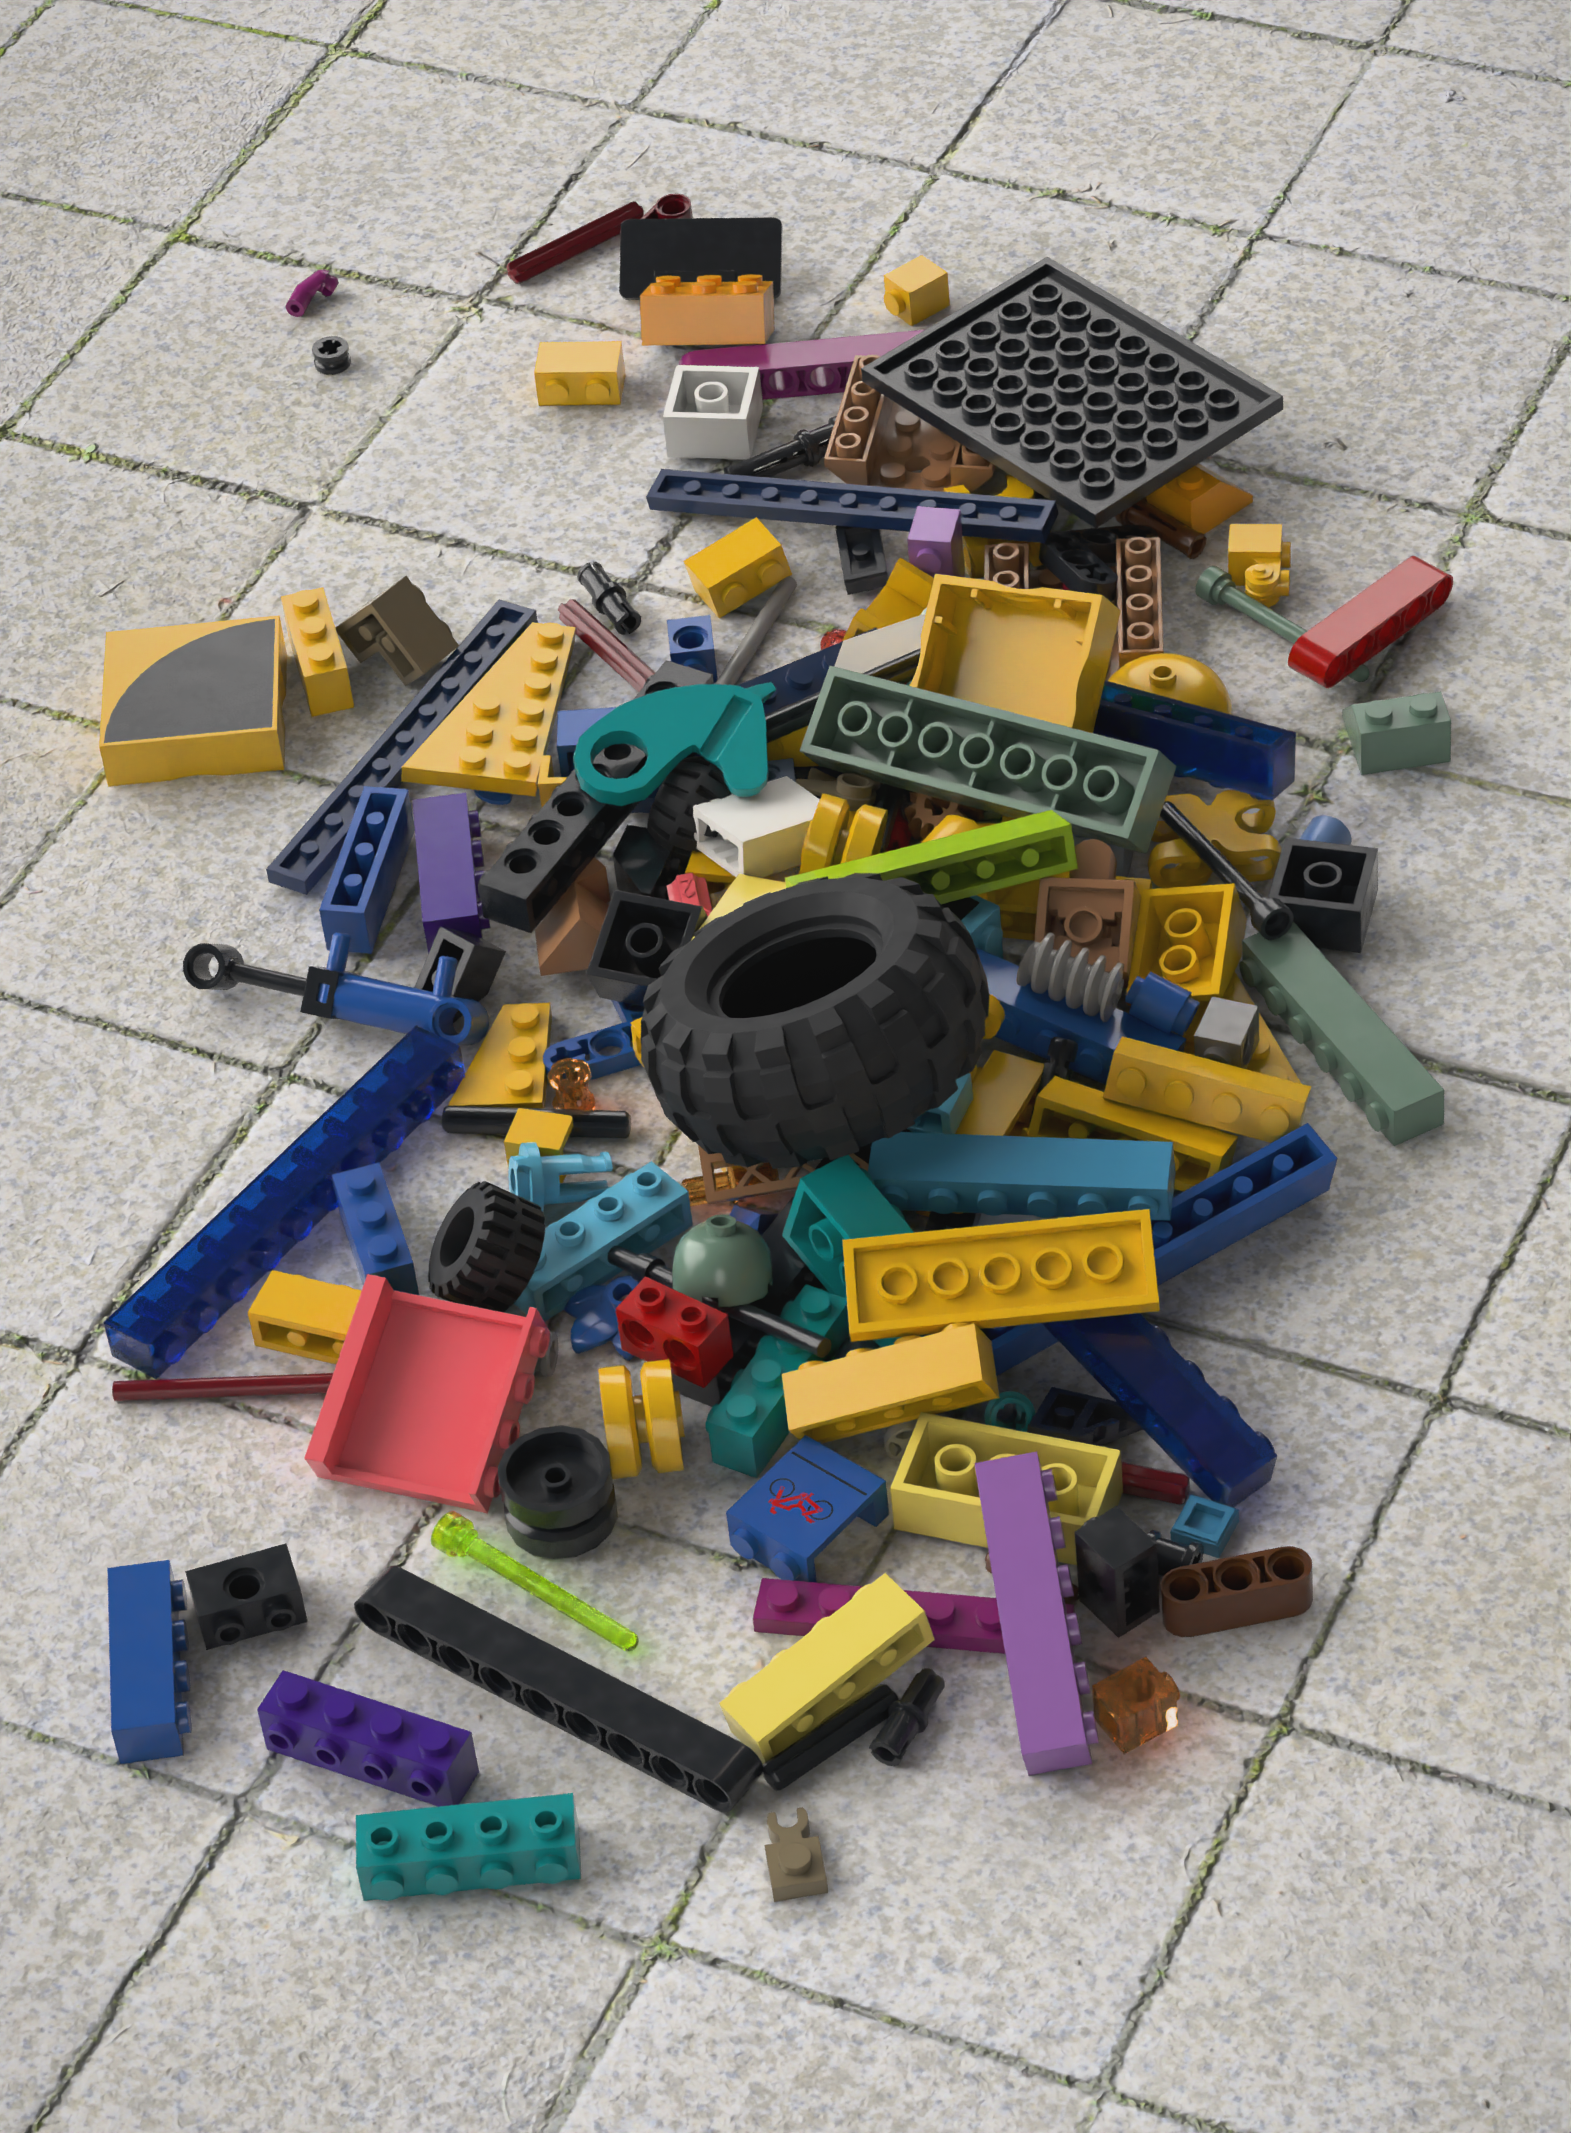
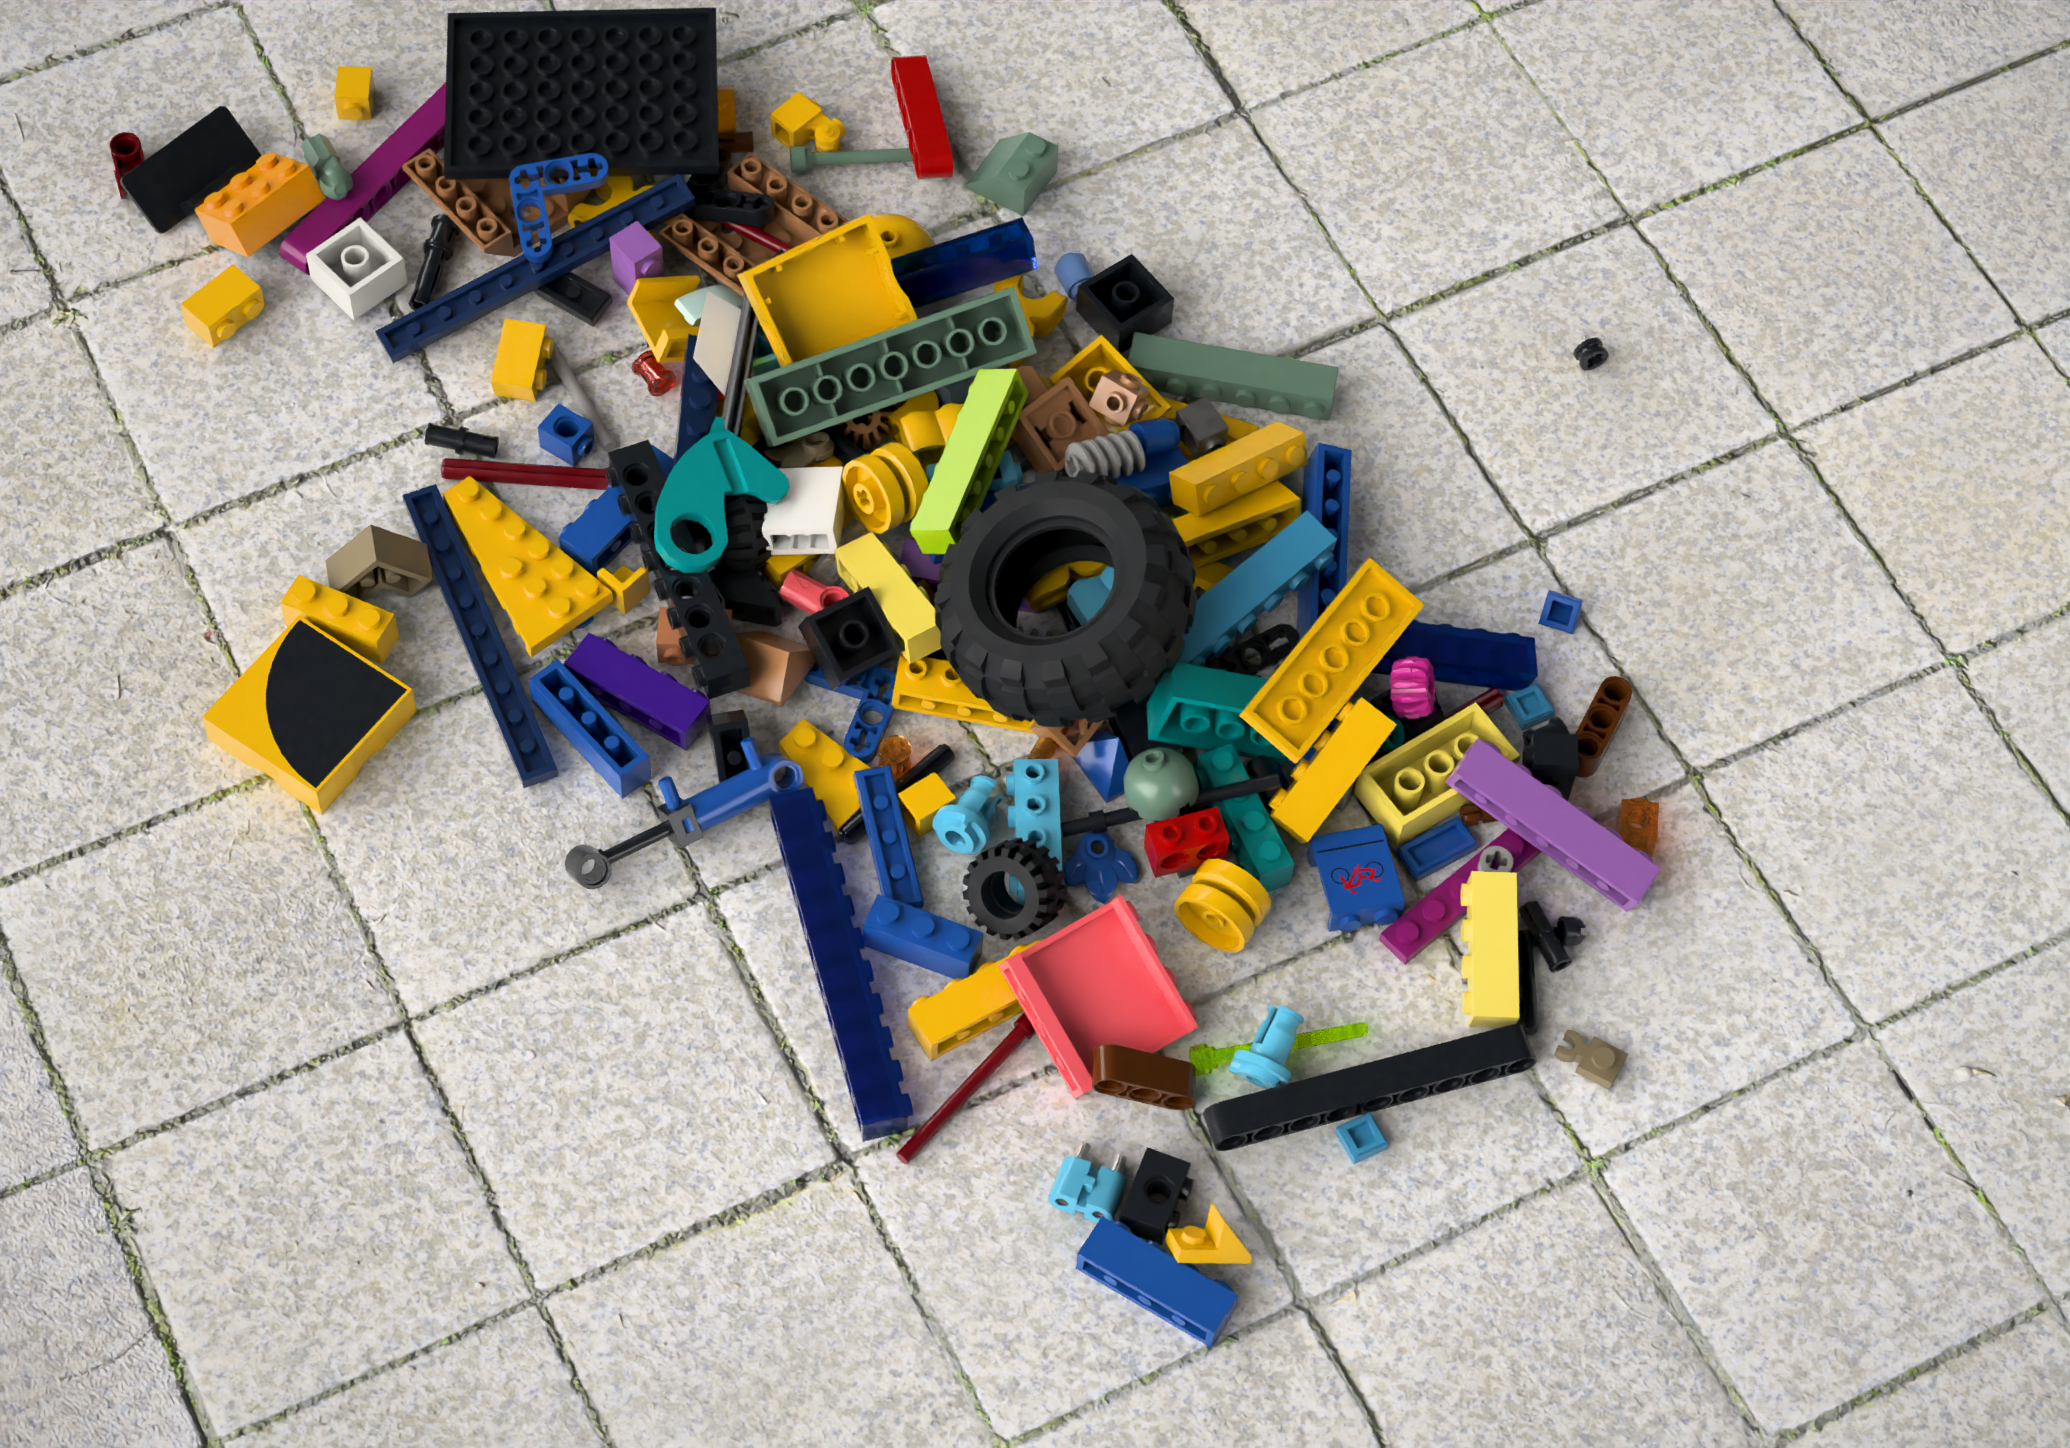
camera: 60 degrees left, 15 degrees up
(207, 1533) = (1088, 1189): none -> medium azure piece
(230, 1671) = (1210, 1245): none -> yellow slope
(331, 355) = (32, 425): black bush -> none
(368, 1740) = (1330, 1207): dark purple brick -> none
(372, 1493) = (1144, 1077): none -> reddish brown beam
(467, 1143) = (888, 835): none -> blue tile
(468, 1847) = (1454, 1209): teal brick -> none
(494, 1723) = (1361, 1138): none -> dark azure tile
(500, 1569) = (1269, 1051): none -> medium azure piece
(557, 1492) = (1231, 984): black wheel -> none
(572, 243) = (76, 217): dark red axle -> none
(800, 322) = (326, 167): none -> sand green piece
(907, 436) = (535, 195): none -> blue beam
(928, 1562) = (1437, 848): none -> blue tile
(936, 1733) = (1570, 930): none -> black hinge
(950, 1596) = (1496, 853): none -> light grey bush
(1068, 1381) = (1412, 687): none -> dark pink gear
(1164, 938) = (1120, 397): none -> medium nougat brick
(1267, 914) = (1130, 338): black piece -> none
(1360, 1472) = (1560, 611): none -> blue slope

